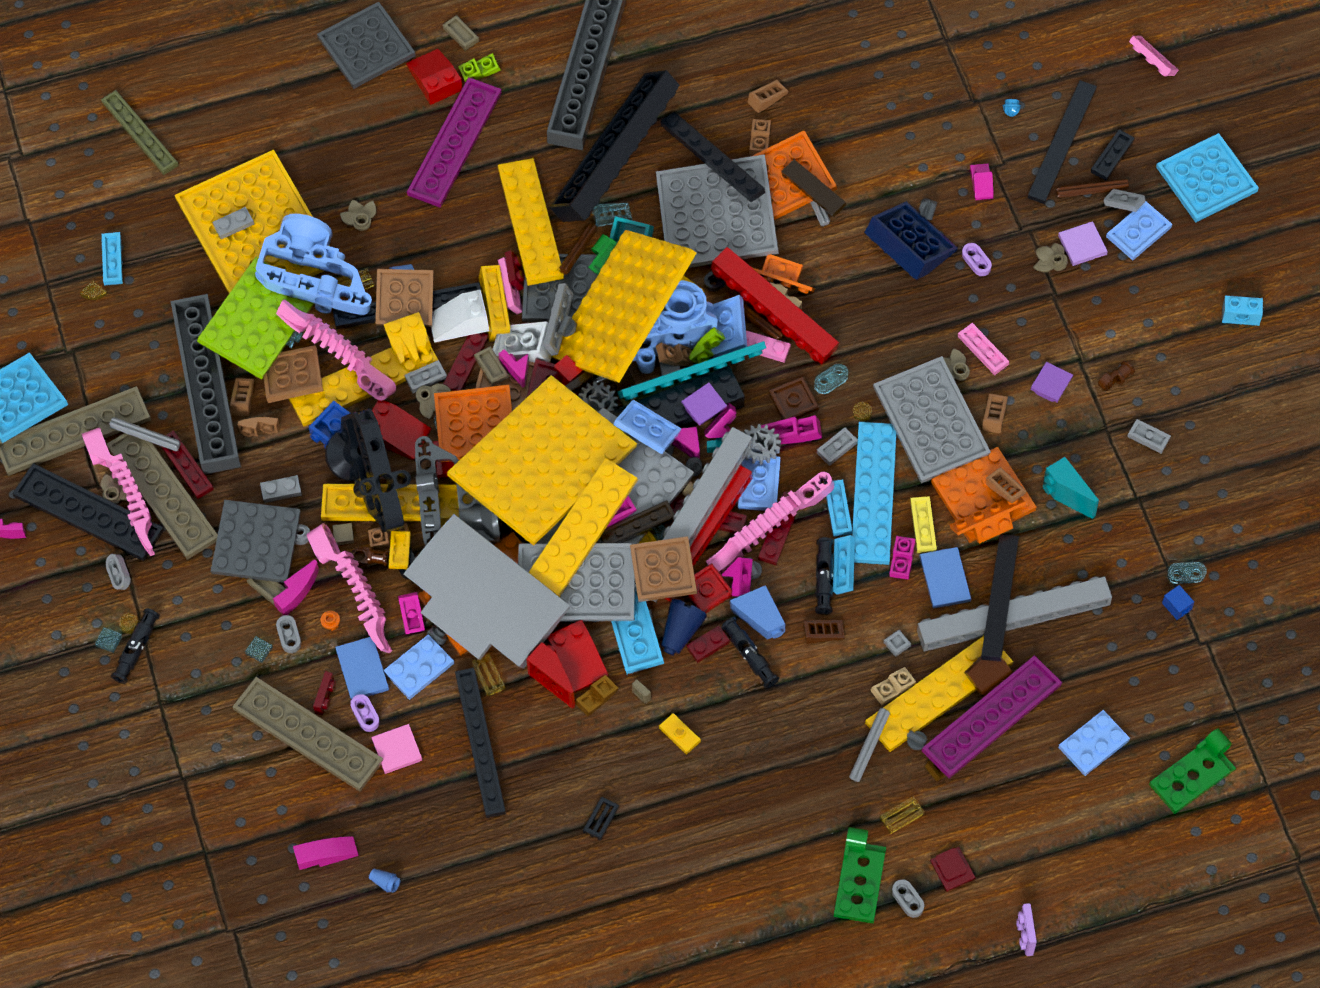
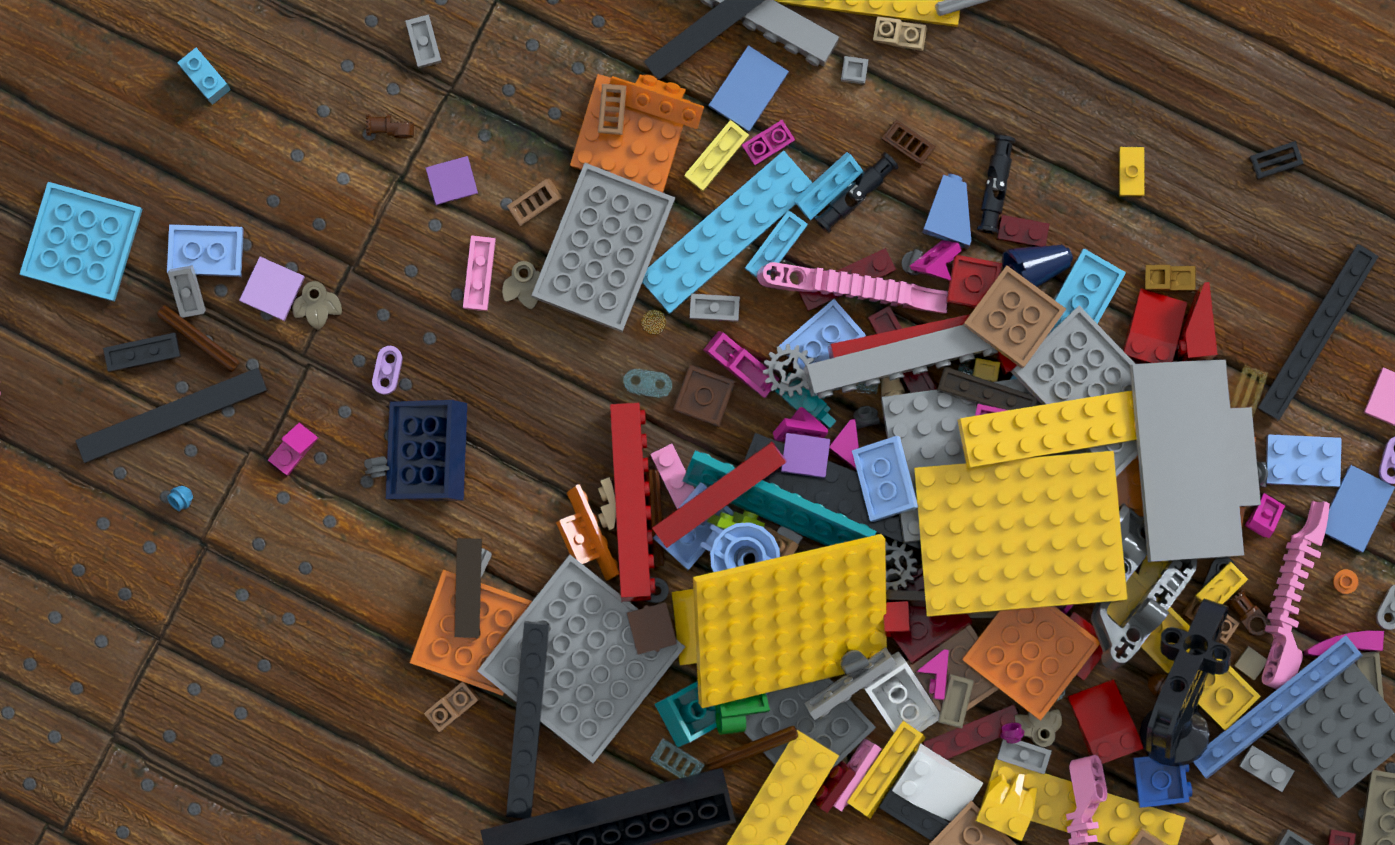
camera: 140 degrees left, 20 degrees up
(305, 516) = (1277, 706): none -> medium blue plate
(443, 375) = (1012, 732): none -> magenta plate
(641, 691) = (1130, 240): dark tan tile -> none
(702, 258) = (651, 628): none -> reddish brown piece
(729, 337) = (719, 494): none -> red tile
(758, 103) = (417, 747): medium nougat slope -> none
(1069, 488) = (554, 64): teal slope -> none

